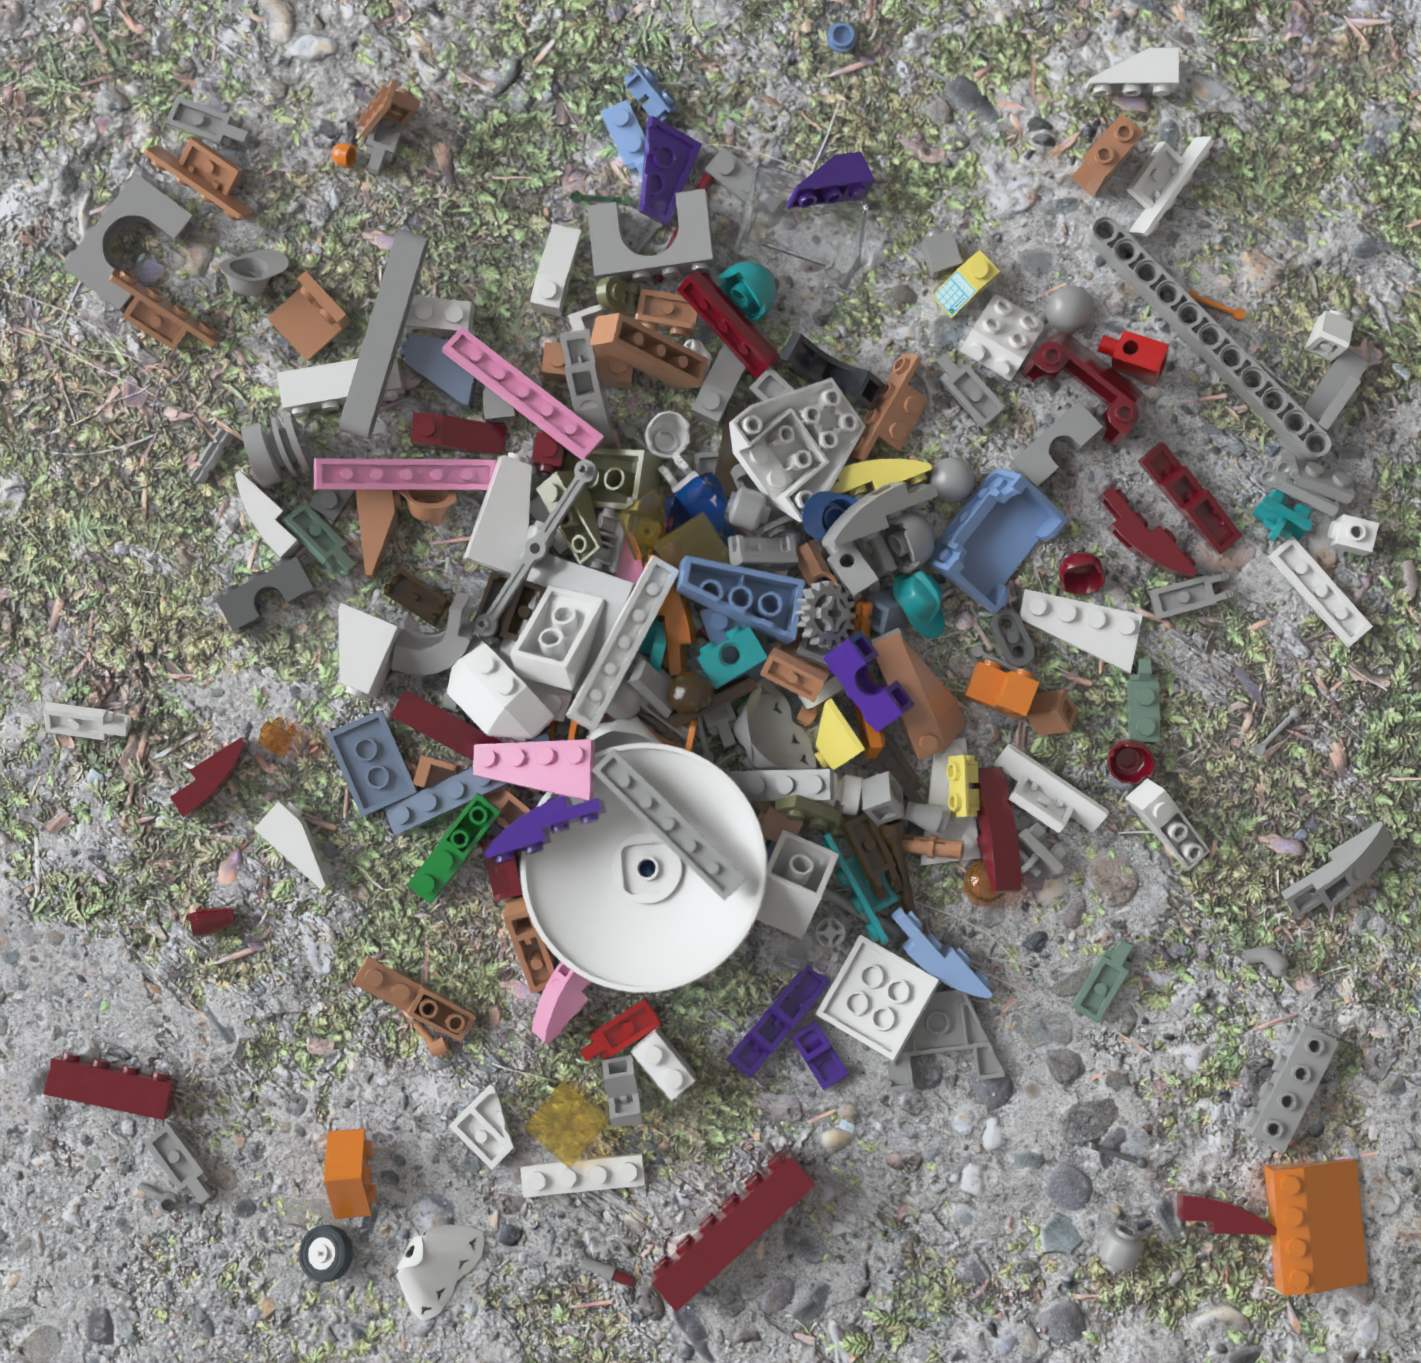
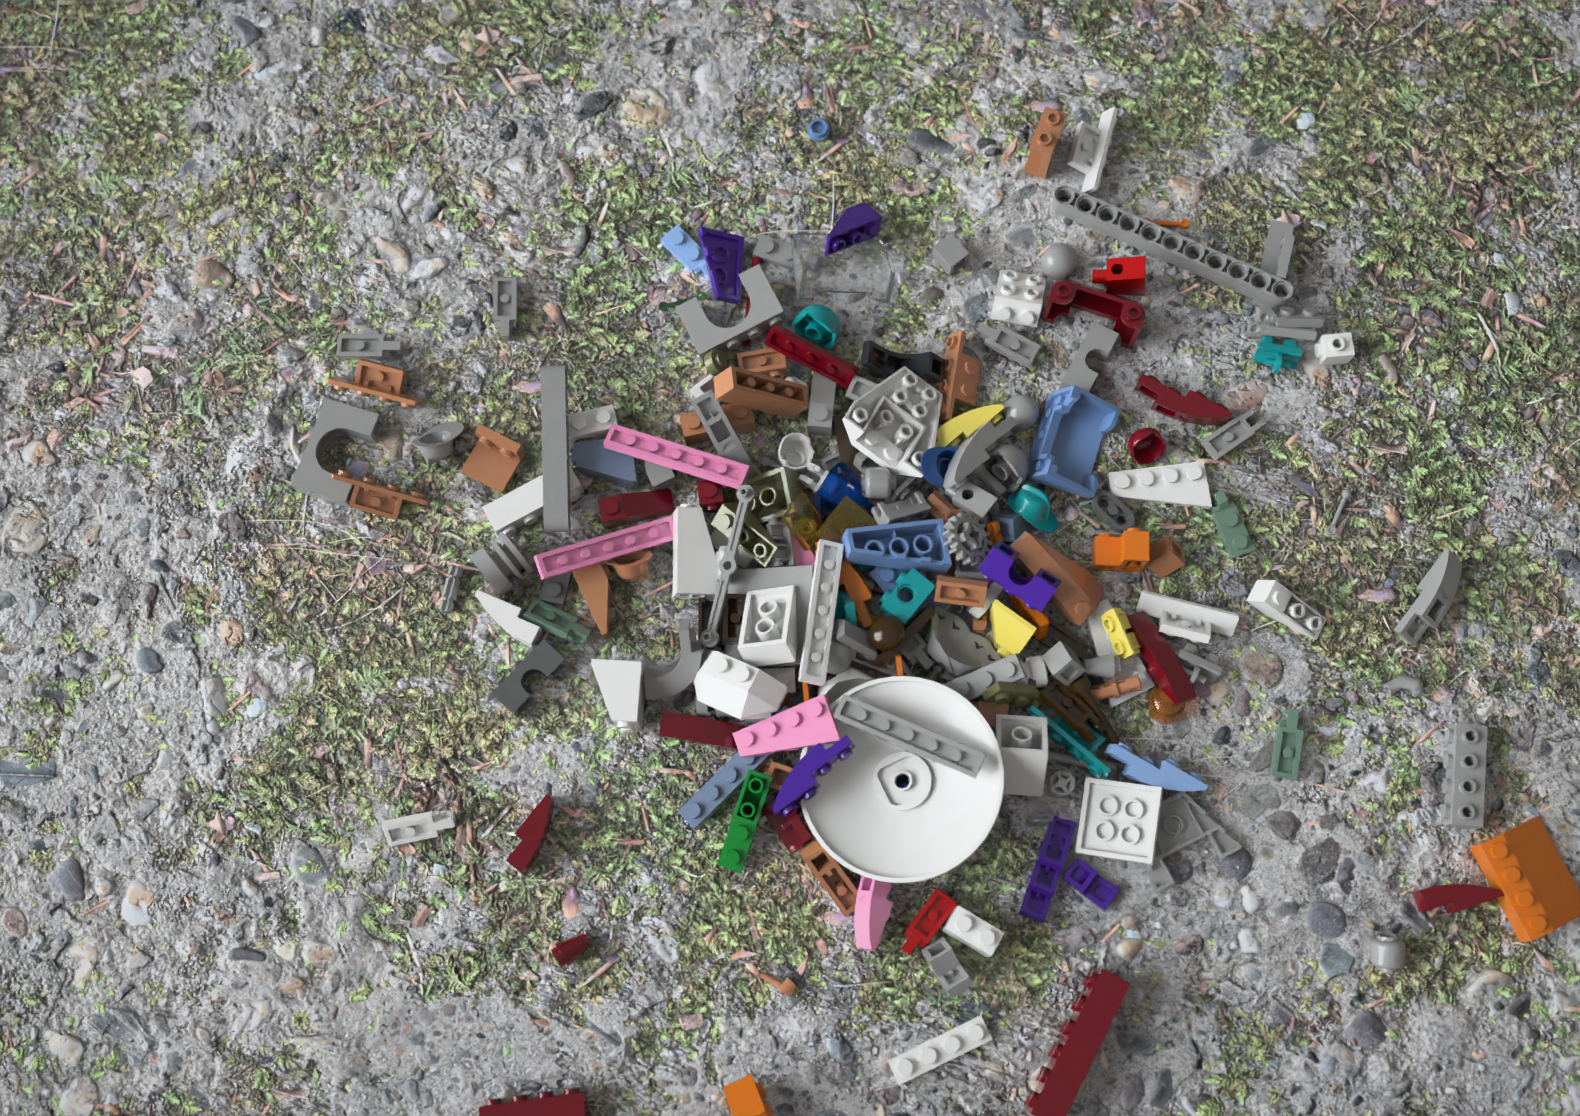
camera: 15 degrees left, 10 degrees down
(276, 738) = (574, 786): clear orange tile -> none
(293, 839) = (611, 858): white slope -> none
(344, 154) = (479, 334): orange hinge -> none
(371, 763) = (656, 779): sand blue plate -> none
(390, 104) = (503, 283): nougat bracket -> none
(414, 998) = (754, 953): nougat slope -> none
(416, 597) = (646, 639): dark brown hinge -> none
(433, 771) = (706, 768): nougat panel -> none
(485, 1128) = (848, 1039): white wing -> none
(555, 270) = (667, 363): white slope -> none
(566, 1124) = (912, 1011): clear yellow tile -> none
(644, 83) = (684, 210): medium blue hinge -> none
(966, 284) = (977, 268): slope -> none
(1130, 761) = (1240, 571): dark red hair -> none
(1140, 1162) = (1374, 879): dark grey hinge -> none
(1148, 71) = (1049, 79): white slope -> none
(1189, 498) = (1203, 365): dark red slope -> none
(1320, 591) = (1327, 398): white plate -> none
(1330, 335) = (1257, 214): white slope -> none

